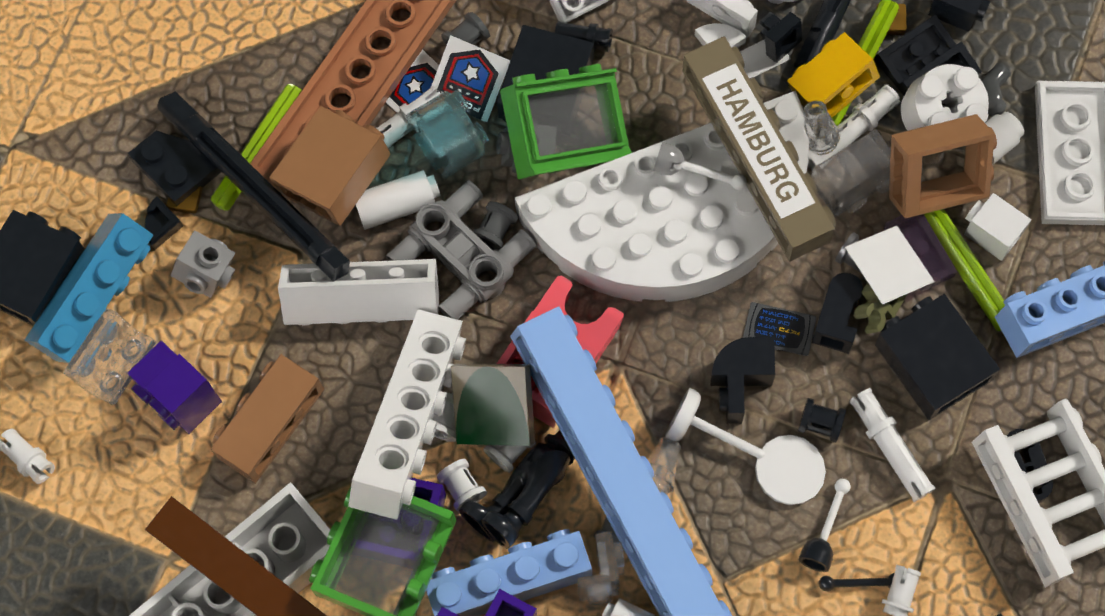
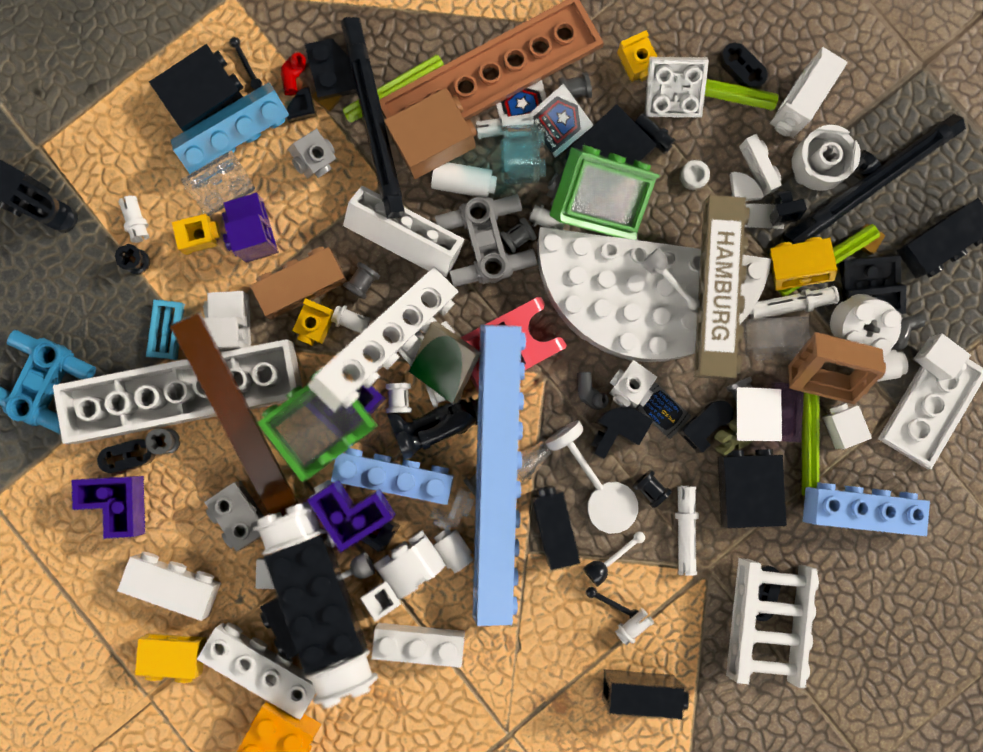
camera: 20 degrees right, 15 degrees up
(41, 493) = (131, 250): none -> black bush
(91, 227) = (255, 82): none -> black hinge
(99, 427) = (187, 230): none -> yellow brick
(120, 533) = (154, 327): none -> medium azure tile
(127, 191) = (291, 71): none -> red arm
(205, 497) = (228, 319): none -> white brick
(309, 437) = (323, 322): none -> yellow brick
(340, 375) = (361, 280): none -> flat silver bush
(350, 427) = (349, 319): none -> white pin
(509, 189) = (541, 217): none -> white pin
(656, 55) = (694, 175): none -> white tile
(682, 356) = (588, 394): none -> dark grey arm
(726, 314) = (636, 377): none -> white brick
(735, 523) = (555, 528): none -> black window
(820, 128) = (771, 295): clear cone -> none
(1051, 92) = (942, 357): none -> white brick

